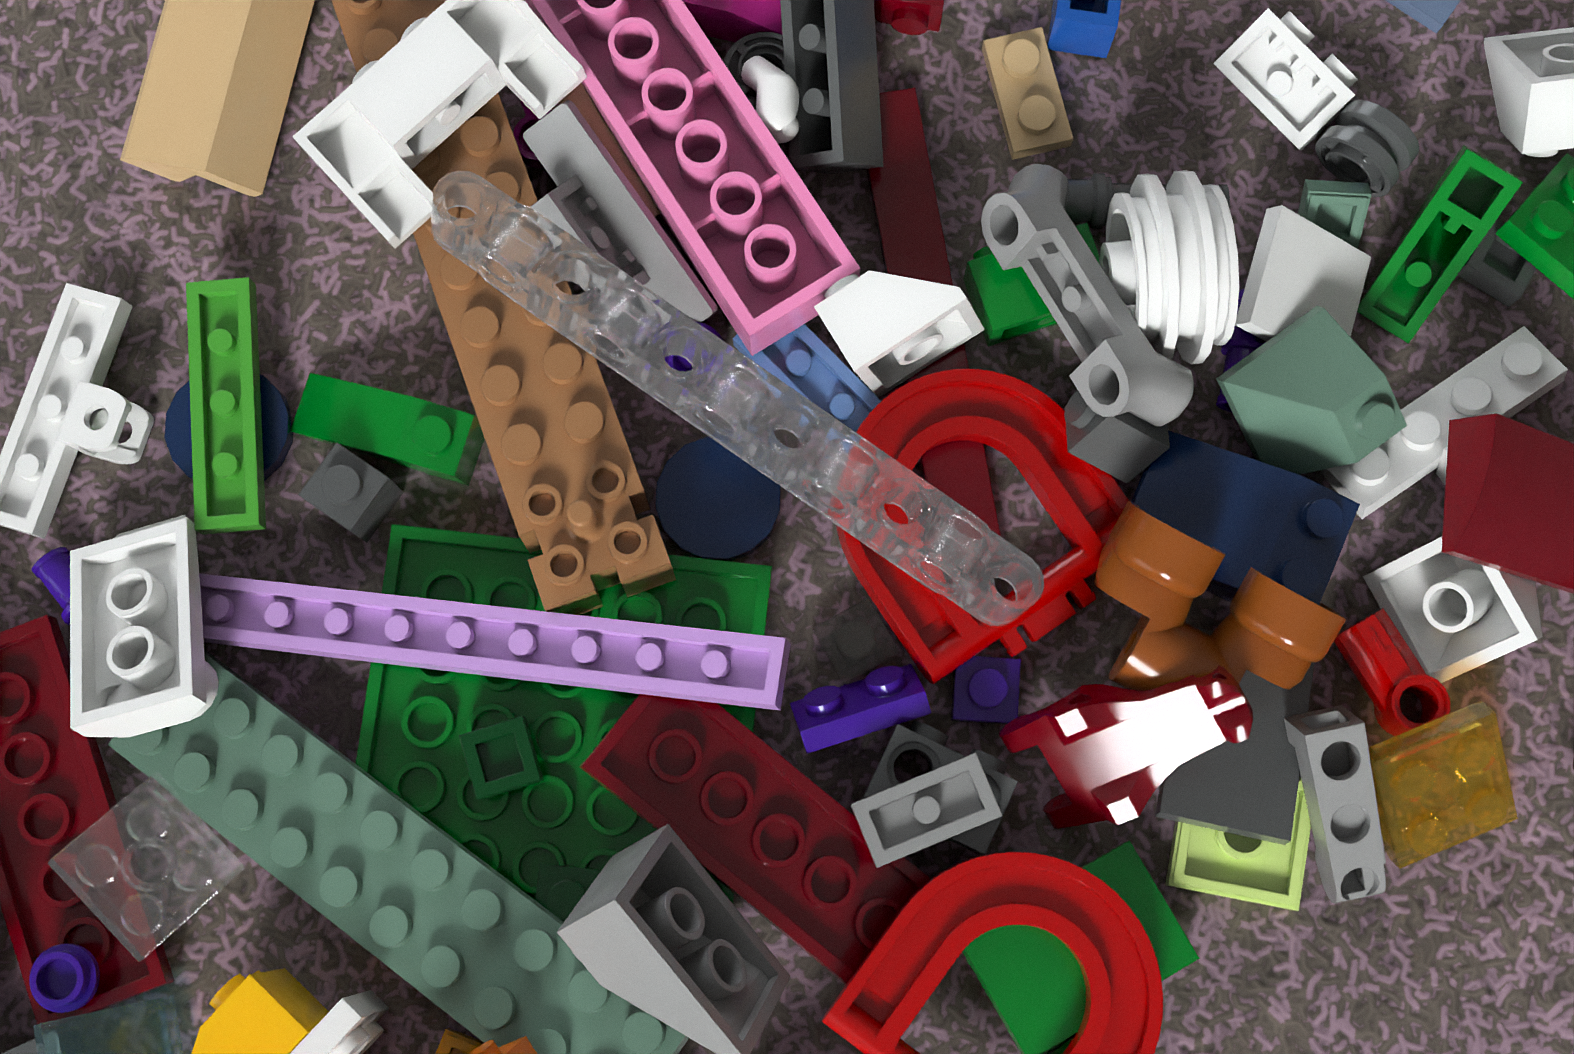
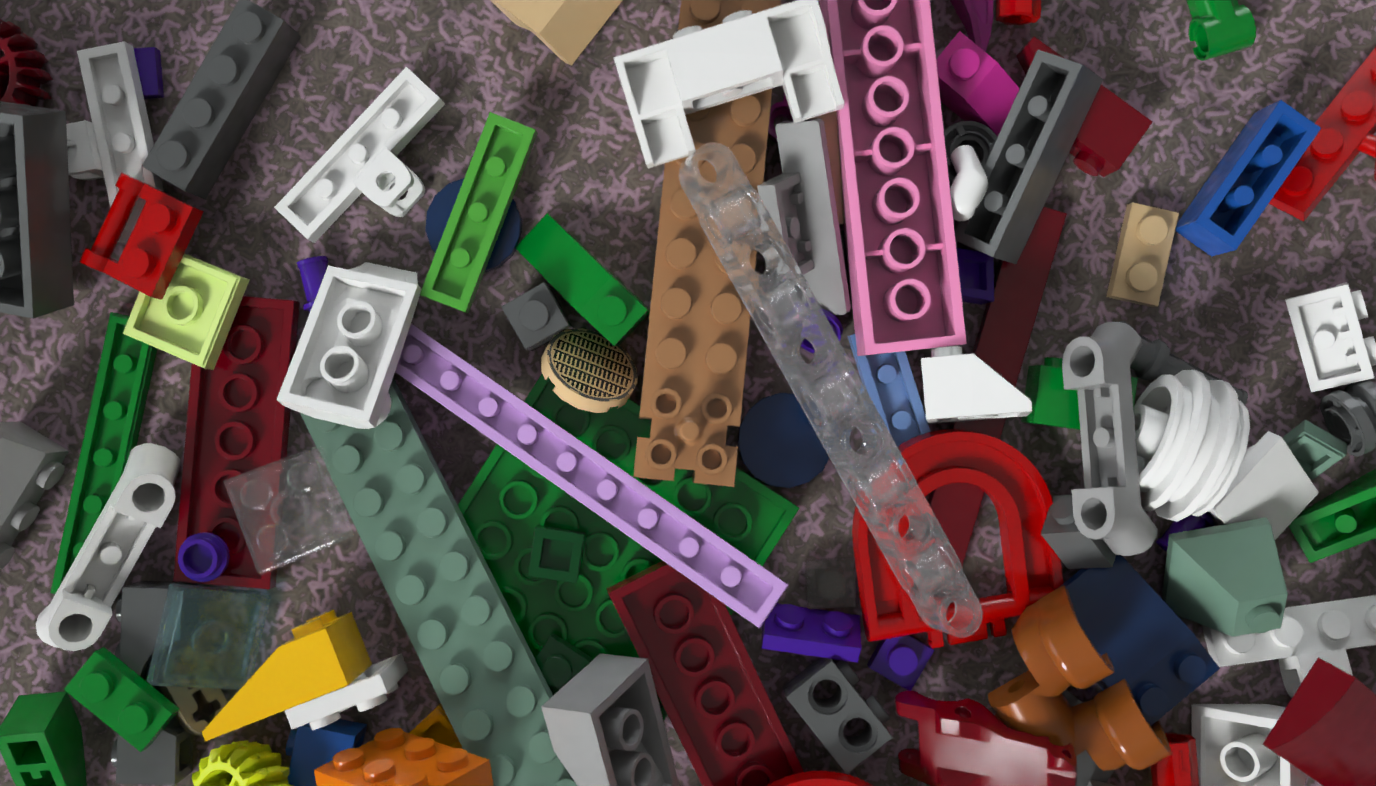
camera: 25 degrees right, 10 degrees up
(440, 522) = (588, 370): none -> tile
(845, 205) = (976, 276): none -> dark purple plate
(926, 810) = (823, 732): light grey plate -> none

